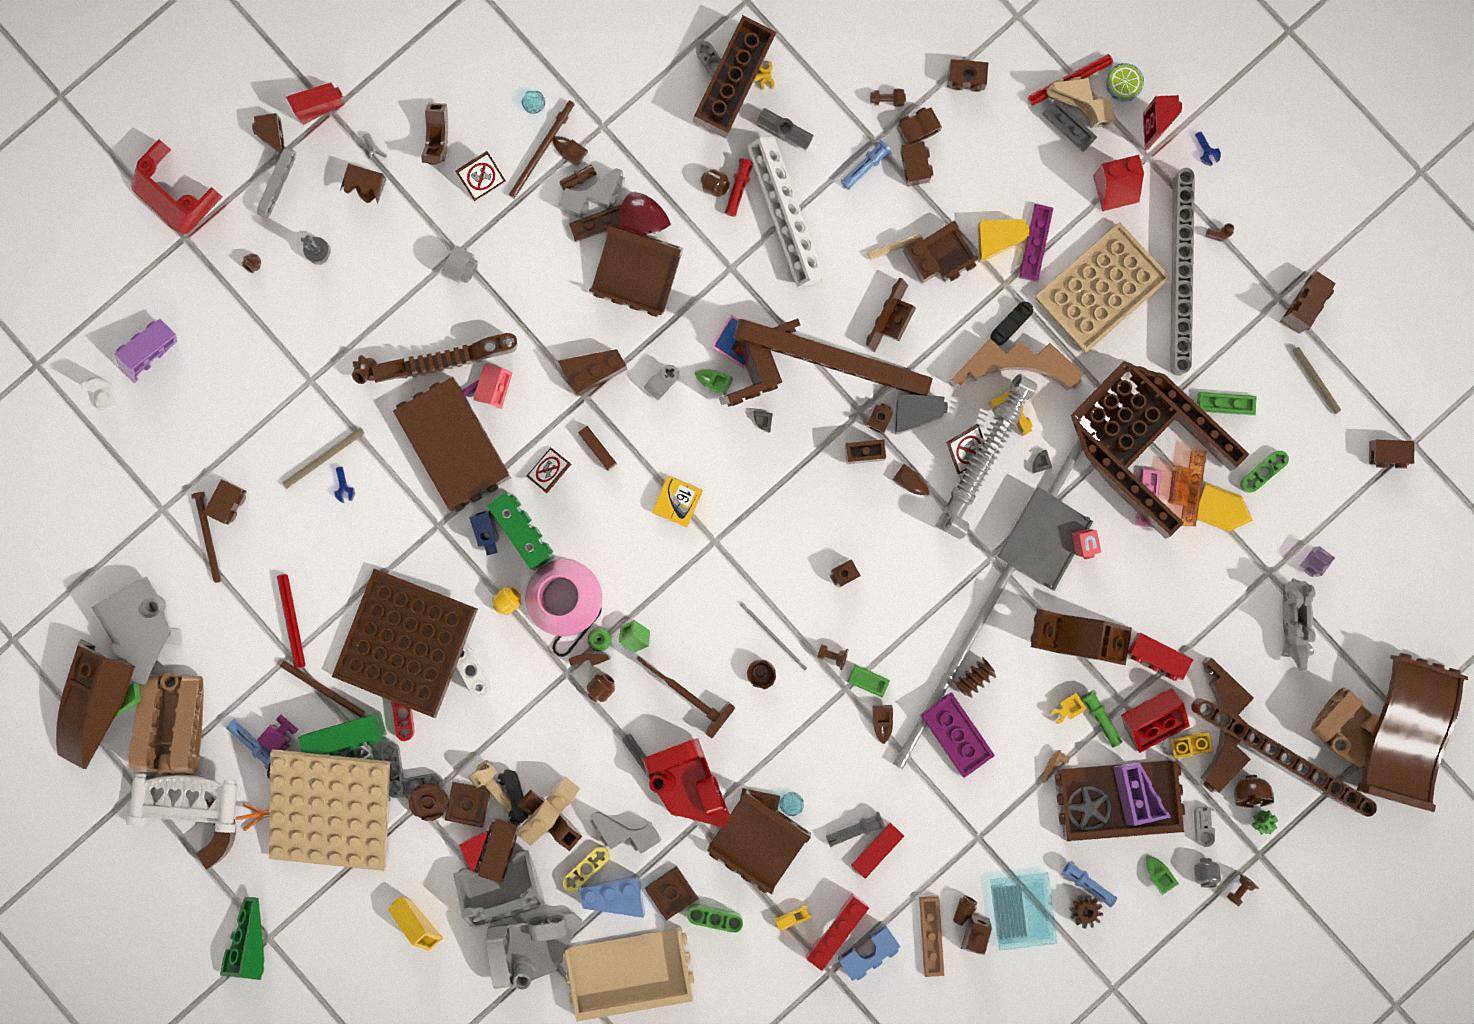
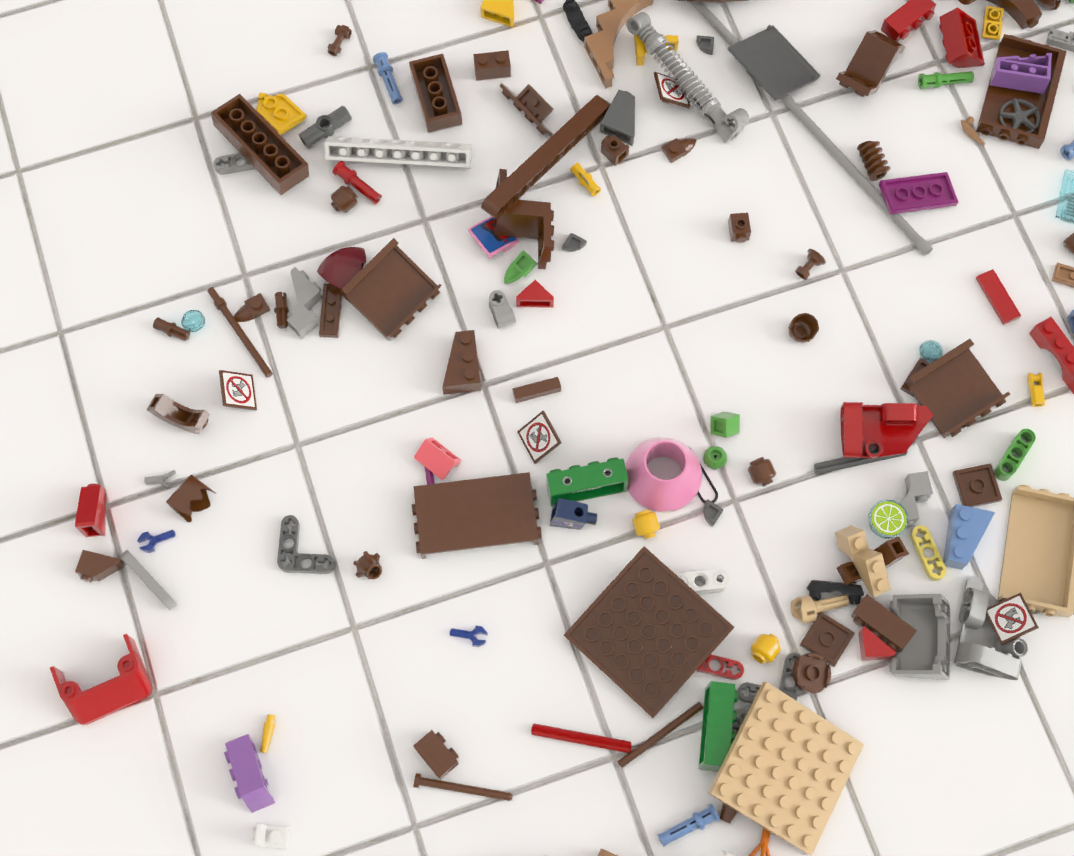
camera: 70 degrees left, 15 degrees down
(189, 349) = (267, 733): none -> yellow animal
(251, 262) = (213, 635): reddish brown plate -> none
(276, 737) = (693, 798): magenta brick -> none
(316, 170) = (154, 540): none -> clear blue bar
(316, 249) = (231, 567): dark grey piece -> none
(324, 457) = (434, 643): dark tan piece -> none
(349, 301) = (297, 558): none -> dark grey beam
(403, 369) = (395, 478): reddish brown piece -> none
(414, 924) = (926, 733): yellow slope -> none
(433, 752) = (765, 648): none -> yellow head
(460, 265) = (311, 440): light grey piece -> none
(517, 86) = (171, 329): none -> reddish brown axle
(544, 656) = (711, 512): none -> dark grey tile
(546, 965) = (1011, 618): none -> piece
(594, 659) = (732, 468): reddish brown slope -> none
(595, 820) = (888, 519): none -> tile
(677, 501) = (615, 340): slope -> none
(690, 406) = (535, 296): none -> red slope
(716, 717) = (829, 380): reddish brown piece -> none
(773, 635) = (771, 309): light grey piece -> none
(782, 77) = (279, 112): none -> yellow tile
(835, 404) = (592, 187): none -> yellow pin
(865, 218) = (435, 93): none -> reddish brown brick
(865, 451) = (639, 169): reddish brown brick -> none
(865, 826) = (973, 297): dark grey pin -> none
(868, 681) = (842, 247): bright green tile -> none
(883, 721) = (883, 247): reddish brown plate -> none
(893, 246) = (468, 84): tan bar -> none
(916, 163) = (406, 39): reddish brown brick -> none
(919, 127) = (376, 25): reddish brown brick -> none
(950, 252) = (496, 40): reddish brown panel -> none
(1070, 706) = (927, 98): yellow plate -> none
(1086, 543) = (790, 33): coral brick -> none

